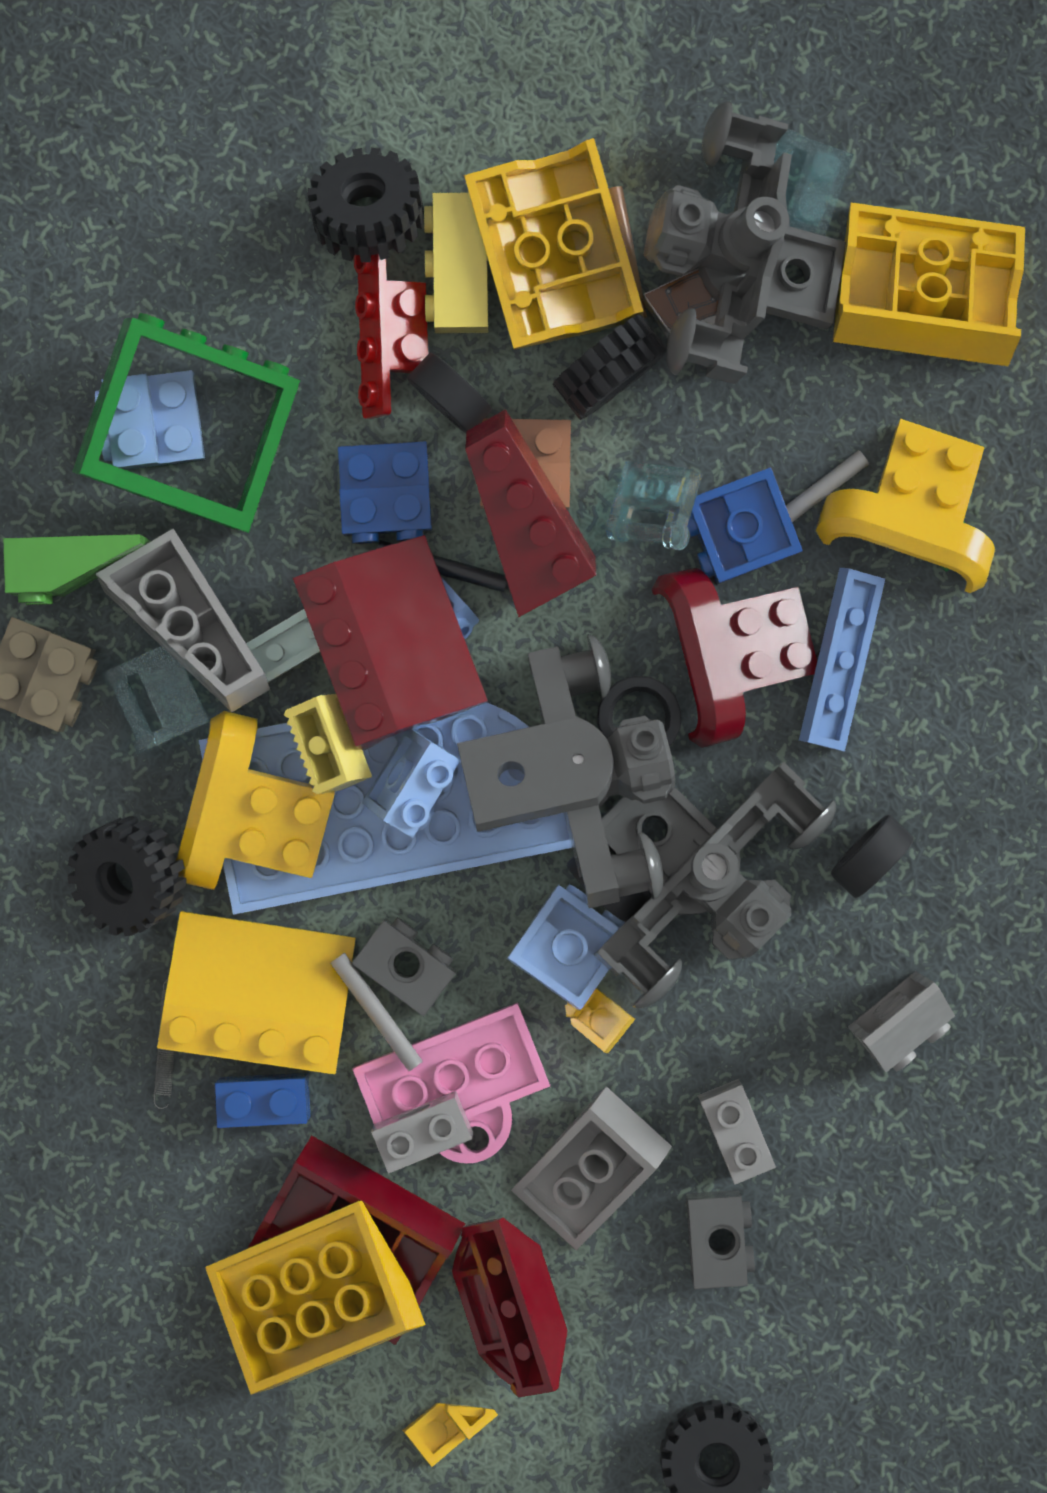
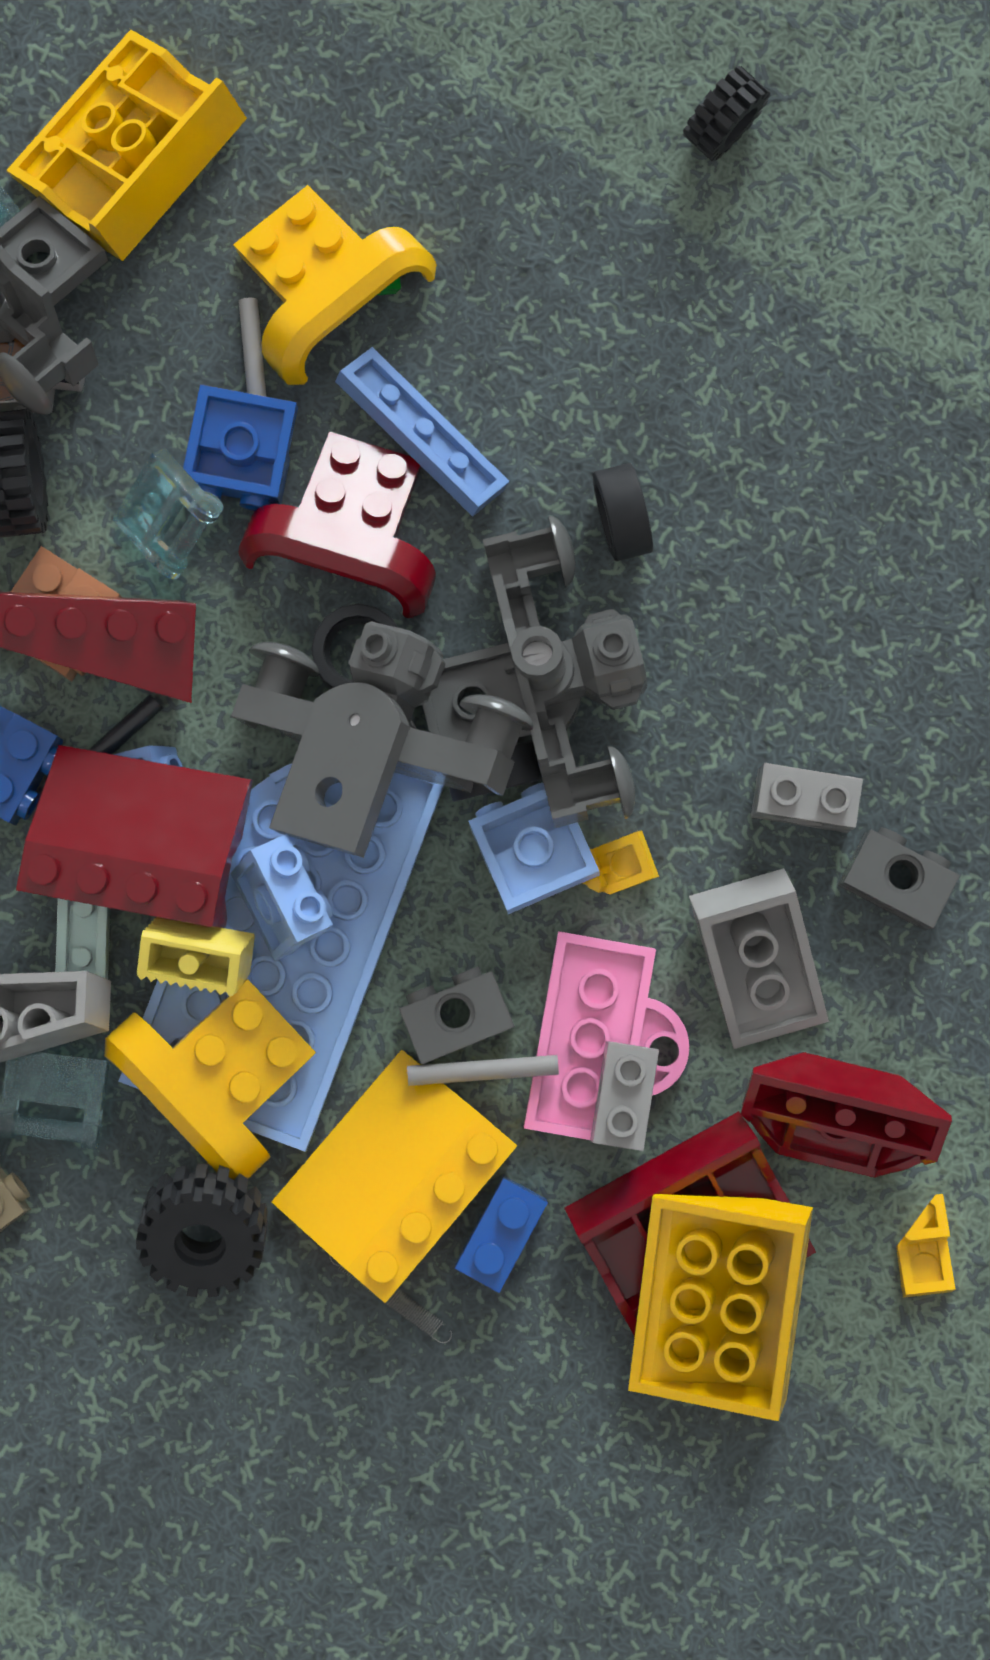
camera: 60 degrees left, 5 degrees down
(903, 1022) = (796, 576): light grey slope -> none

